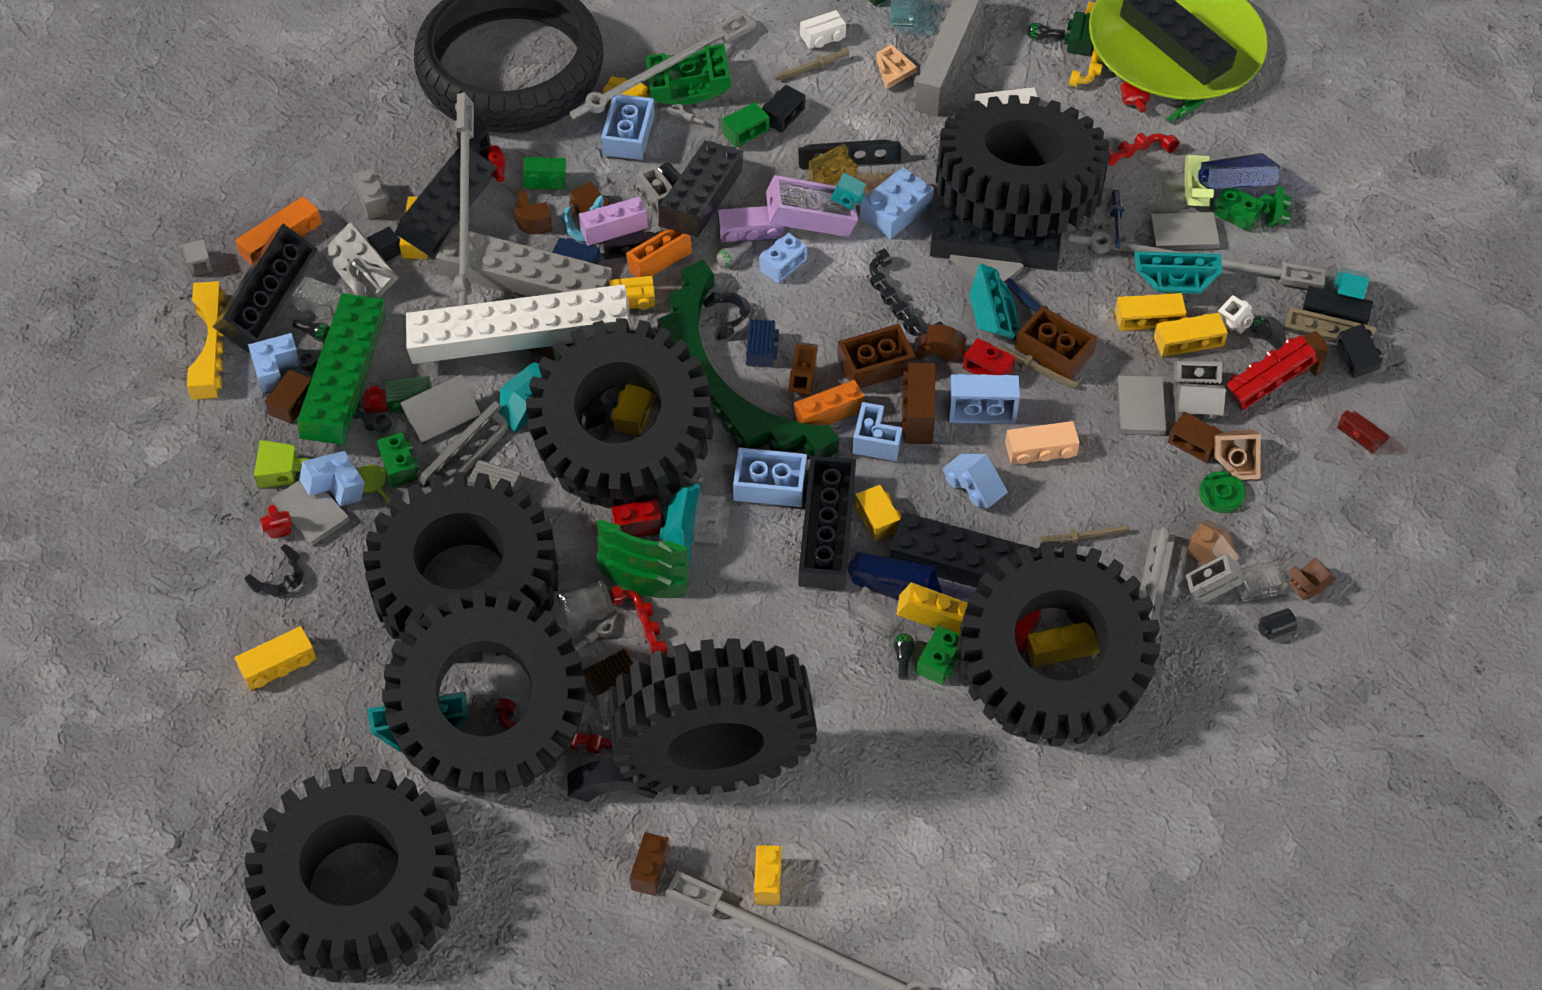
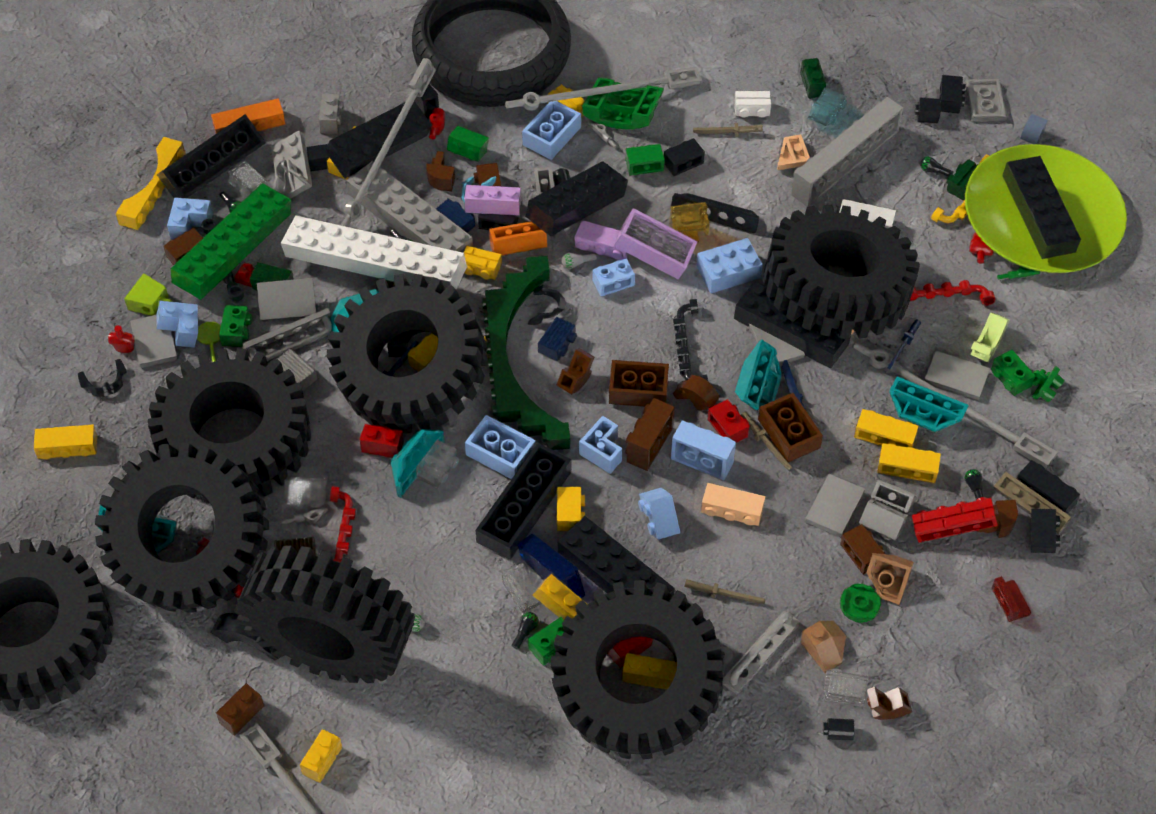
camera: 25 degrees right, 0 degrees up
(197, 257) = (180, 118): light grey brick -> none
(642, 564) = (360, 480): green slope -> none
(830, 405) = (579, 408): orange brick -> none
(849, 191) = (688, 242): teal brick -> none
(1215, 578) = (805, 670): light grey brick -> none
(1236, 314) = (955, 460): white brick -> none
(1239, 171) = (1026, 342): clear blue slope -> none
(1351, 283) = (1070, 471): teal brick -> none

